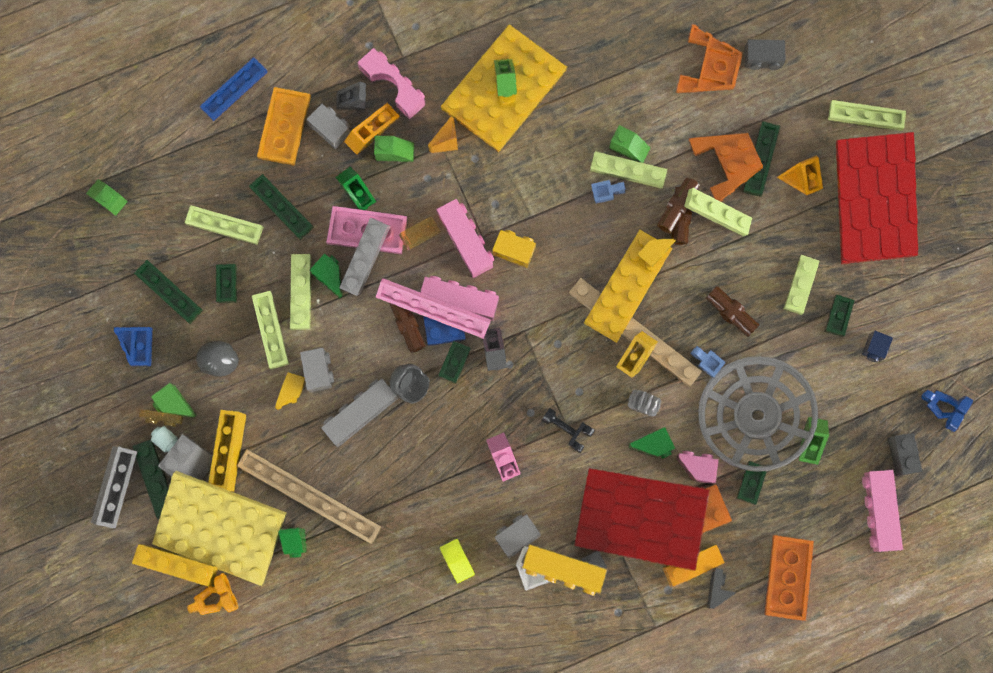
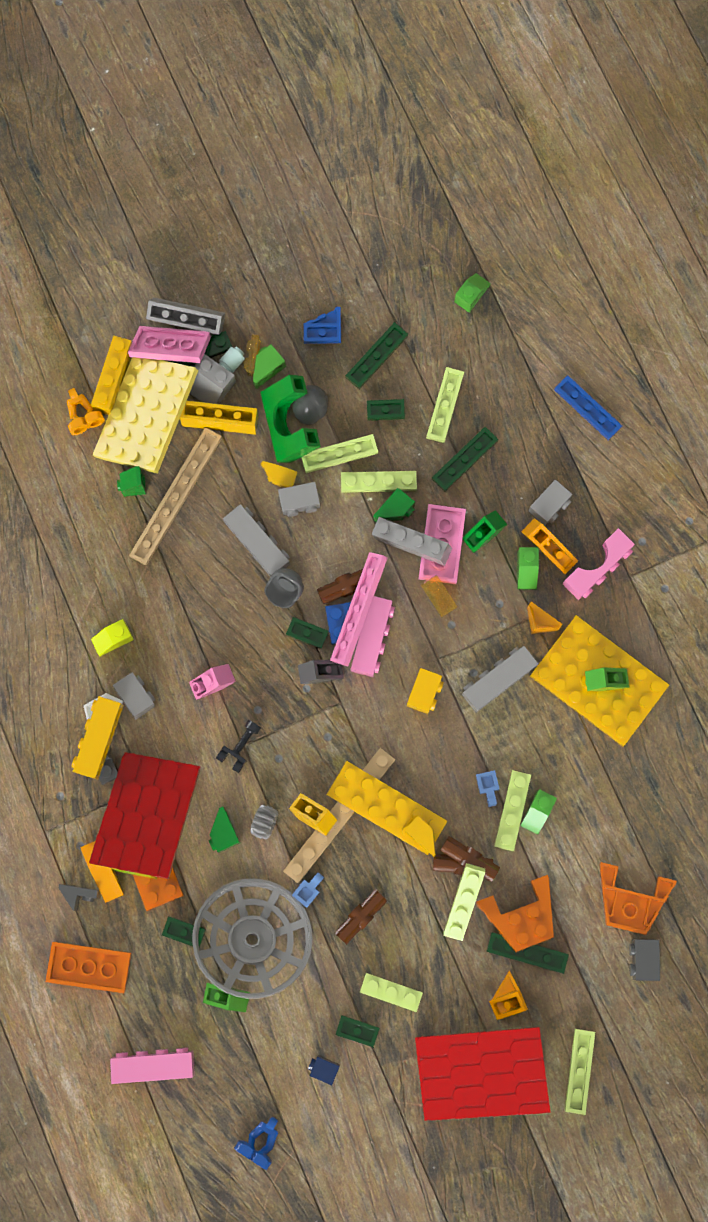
camera: 90 degrees right, 0 degrees up
(144, 503) = (169, 344): none -> bright pink plate
(214, 392) = (276, 403): none -> green arch
(284, 126) = (550, 458): light orange plate -> none
(352, 97) = (582, 525): dark grey slope -> none
(465, 238) = (434, 641): bright pink brick -> none
(502, 177) = (499, 679): none -> light grey brick
(699, 468) = (198, 878): bright pink slope -> none
(905, 454) = (210, 1093): dark grey brick -> none

